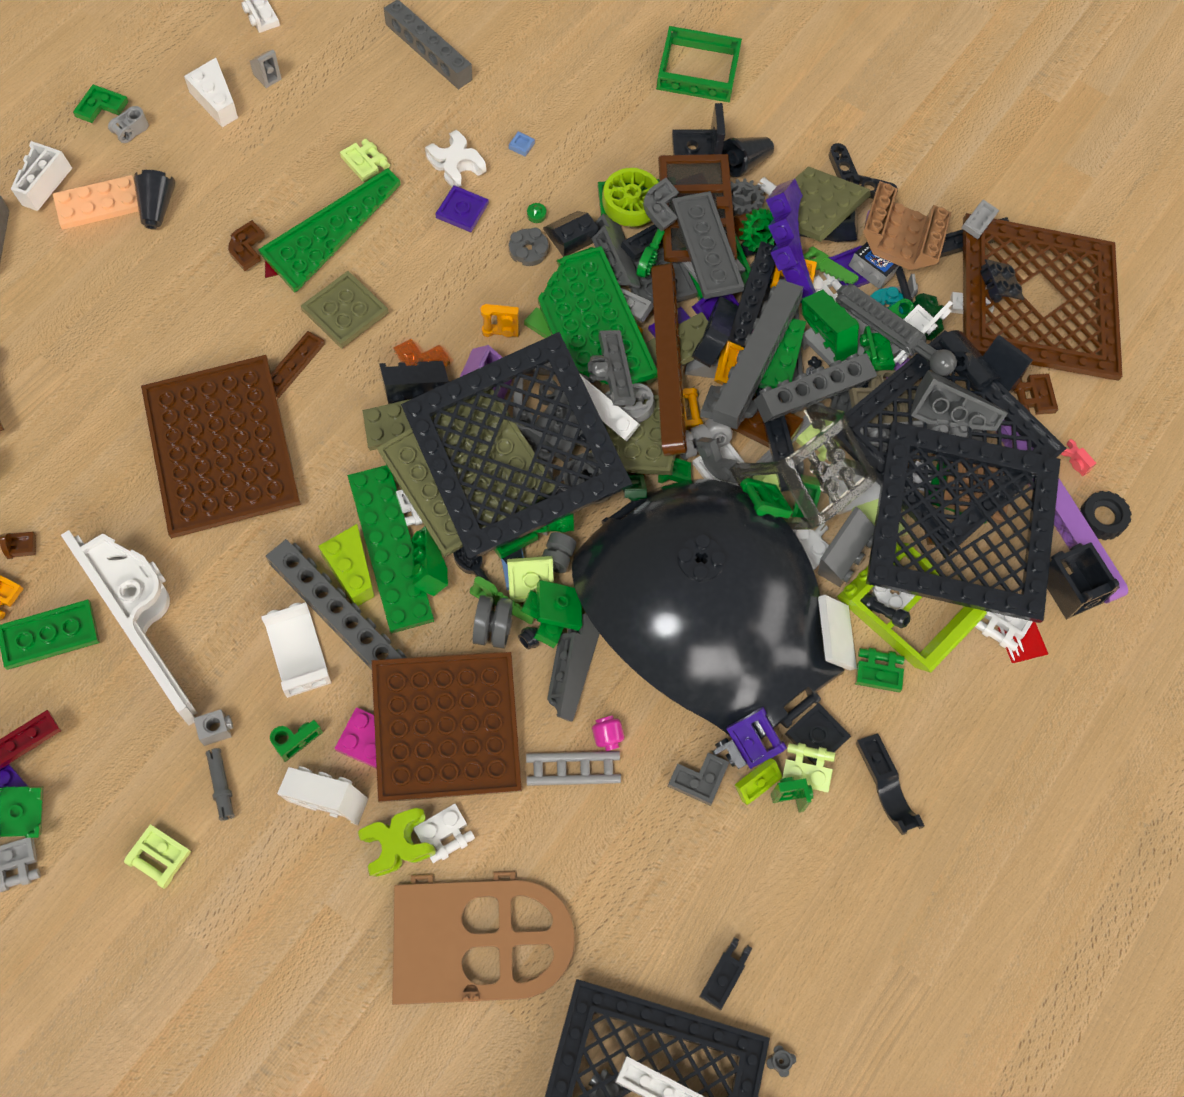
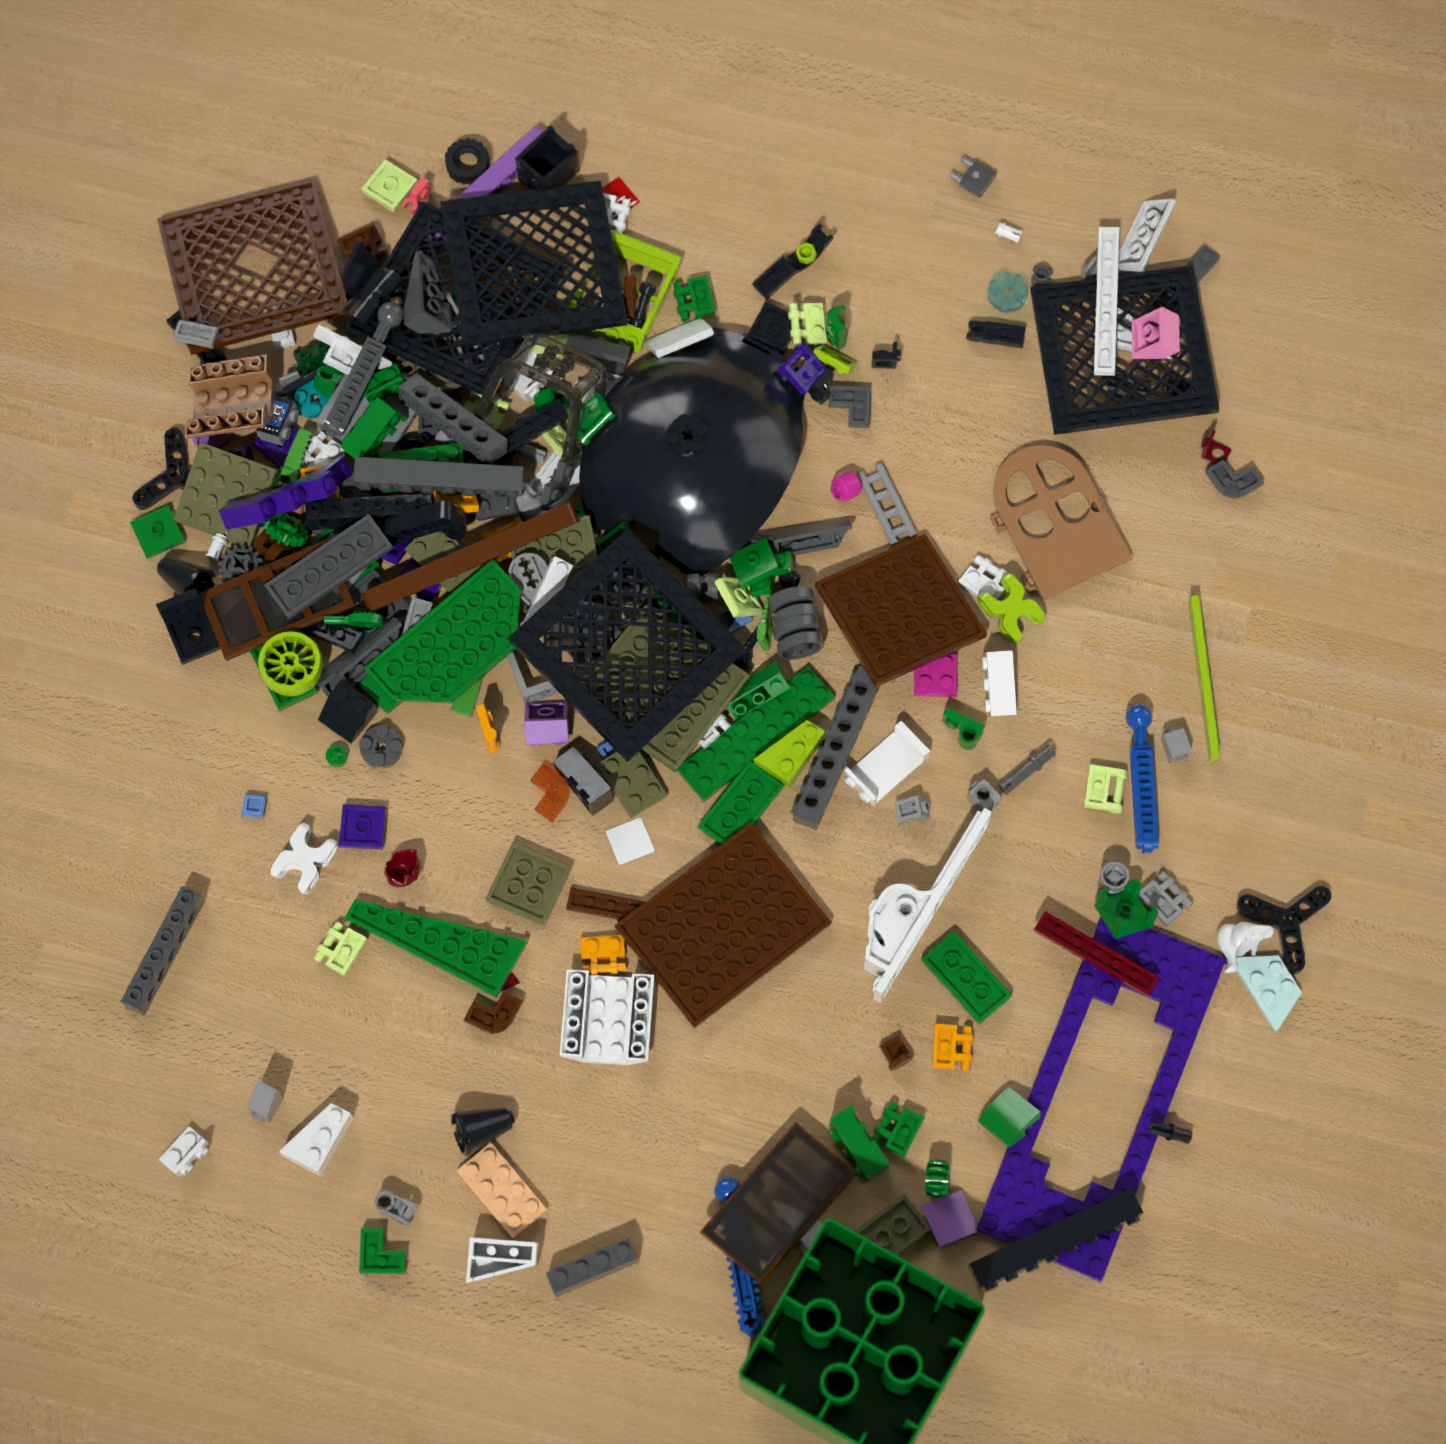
camera: 105 degrees left, 5 degrees up
(56, 817) = (1113, 876): none -> light grey wheel
(161, 954) = (1176, 745): none -> light grey brick
(192, 320) = (606, 1018): none -> white slope
(209, 925) = (1143, 780): none -> blue gear
(219, 1022) = (1203, 678): none -> lime tile
(237, 655) = (912, 809): none -> light grey bracket
(257, 345) = (603, 948): none -> light orange plate
(324, 502) = (741, 804): none -> green plate
(343, 405) = (630, 841): none -> white sticker
(406, 220) = (403, 868): none -> dark red hair
(459, 613) = (797, 637): none -> dark grey wheel
(613, 368) = (508, 594): dark grey plate -> none
(656, 204) = (300, 629): dark grey plate -> none
(692, 85) = (69, 633): green window -> none
(741, 833) = (886, 359): none -> black bracket
(782, 998) = (1004, 302): none -> clear light blue plate
(802, 153) = (157, 532): none -> green plate
(851, 1044) = (1008, 232): none -> white pin
(894, 801) = (806, 253): none -> lime tile
(898, 600) = (630, 295): none -> reddish brown pin
(932, 1039) = (977, 177): none -> dark grey piece
(1000, 281) = (261, 294): black hinge -> none
(1097, 437) = (389, 186): none -> yellowish green plate

